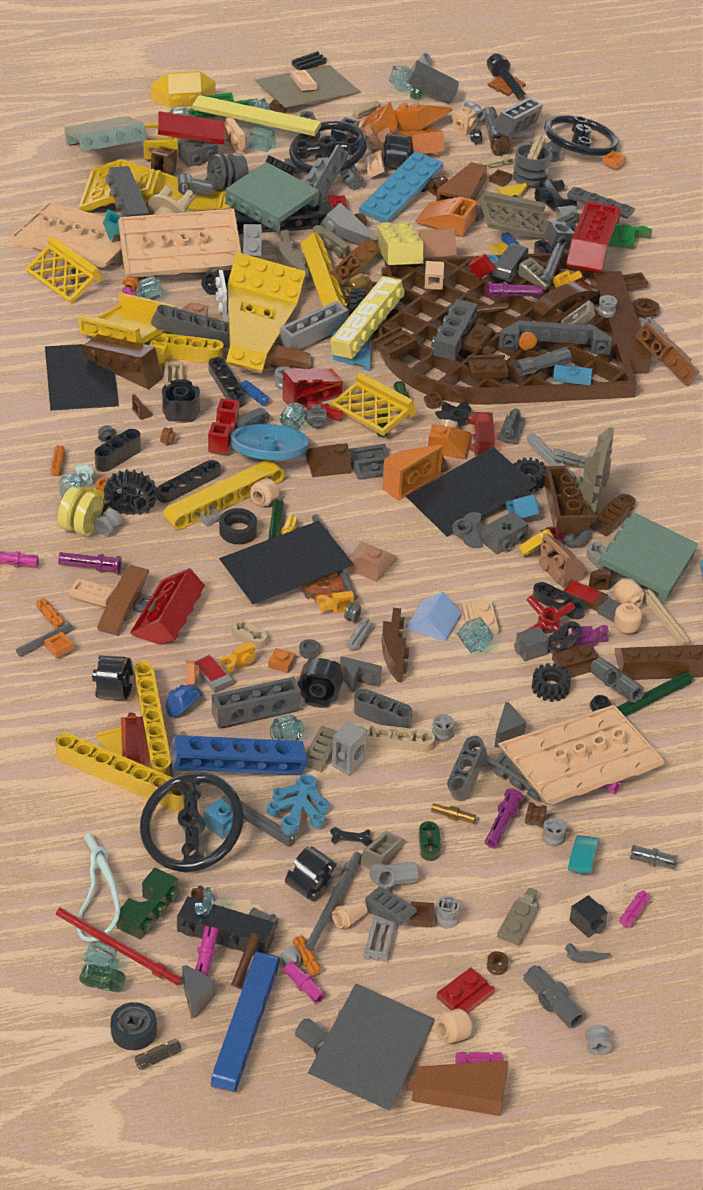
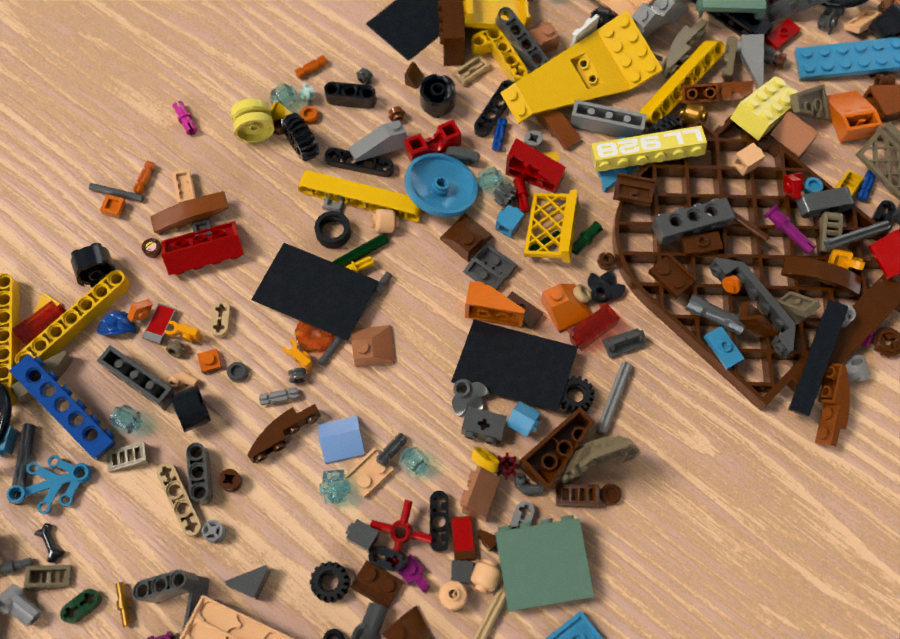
camera: 55 degrees right, 25 degrees up
(99, 562) = (219, 169): magenta pin -> none
(109, 520) = (265, 144): light grey wheel -> none
(129, 643) = (151, 247): none -> reddish brown tile
(188, 453) = (382, 140): none -> light grey slope
(252, 673) = (175, 348): none -> dark tan plate
(342, 427) = (509, 220): none -> dark azure brick
(349, 748) = (127, 480): light grey brick -> none
(360, 671) = (227, 423): dark grey slope -> none
(407, 694) = (233, 484): none -> reddish brown wheel
(418, 221) = (811, 103): none -> dark tan wing
(474, 590) = (391, 449): none -> dark grey axle
(497, 584) = (414, 462): none -> clear light blue head
(569, 458) = (621, 414): light grey axle -> none
(576, 340) = (756, 321): none -> reddish brown panel
(628, 334) = (818, 358): none -> black tile

